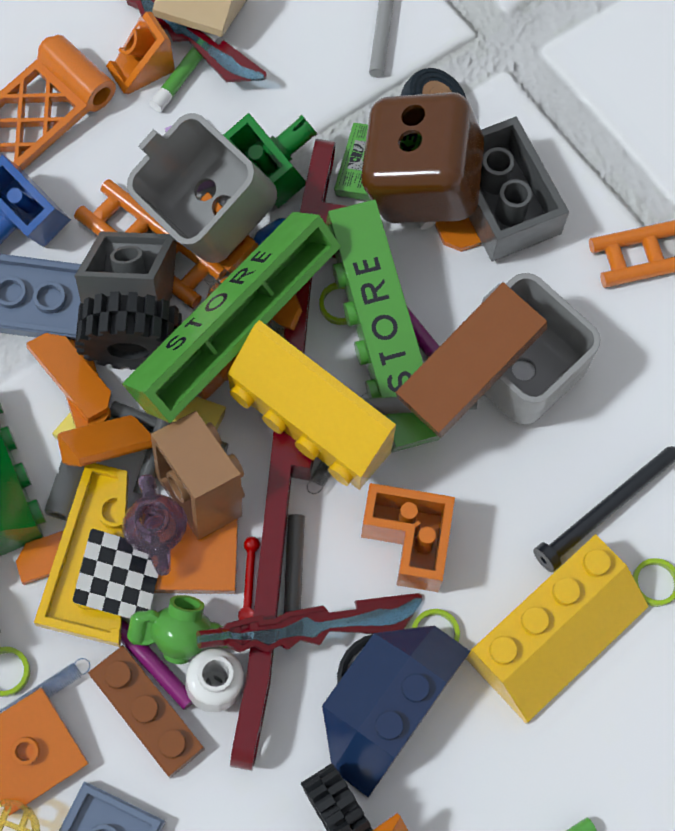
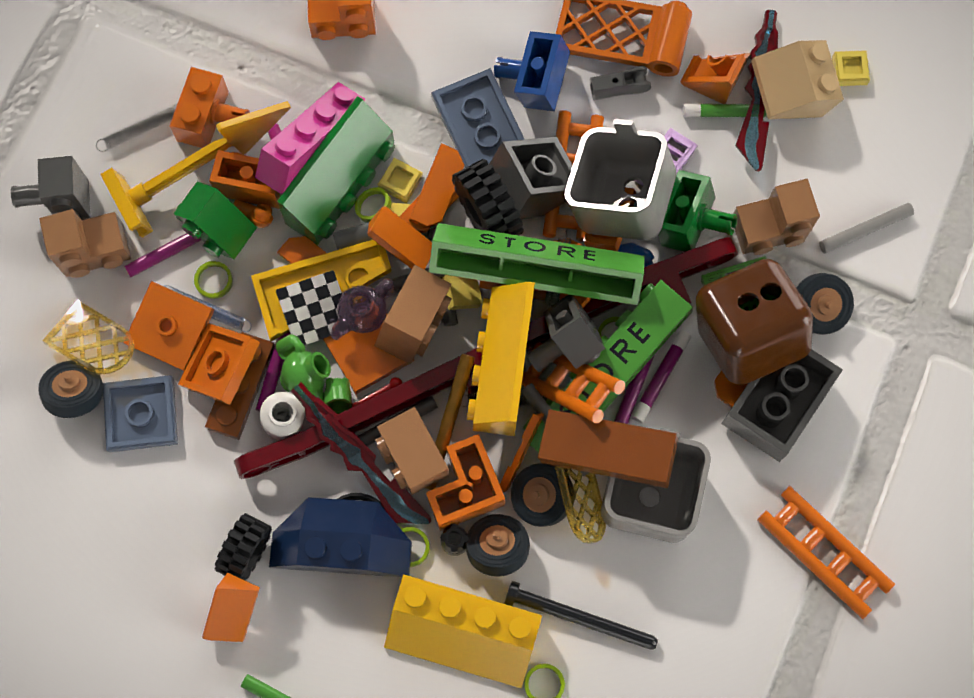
camera: 60 degrees right, 5 degrees up
(24, 450) = (363, 196): none -> lime piece
(34, 410) = (400, 180): none -> light yellow tile
(85, 147) = (615, 85): none -> dark grey bar
(110, 716) = (219, 363): none -> orange plate
(227, 607) = (338, 394): none -> bright green hose
(327, 326) = (571, 334): none -> dark grey brick
(329, 83) = (779, 220): none -> medium nougat brick
(332, 511) = (453, 406): none -> pearl gold bar
(346, 560) = (412, 451): none -> medium nougat brick
(379, 339) = (569, 397): none -> orange bar
(402, 438) = (527, 436): none -> orange piece
(416, 295) = (661, 376): none -> magenta bar
(455, 592) = (450, 549): none -> black hose
(465, 465) = (538, 495): none -> black wheel
(490, 540) = (497, 545): none -> black wheel
(525, 433) = (569, 501): none -> clear yellow window

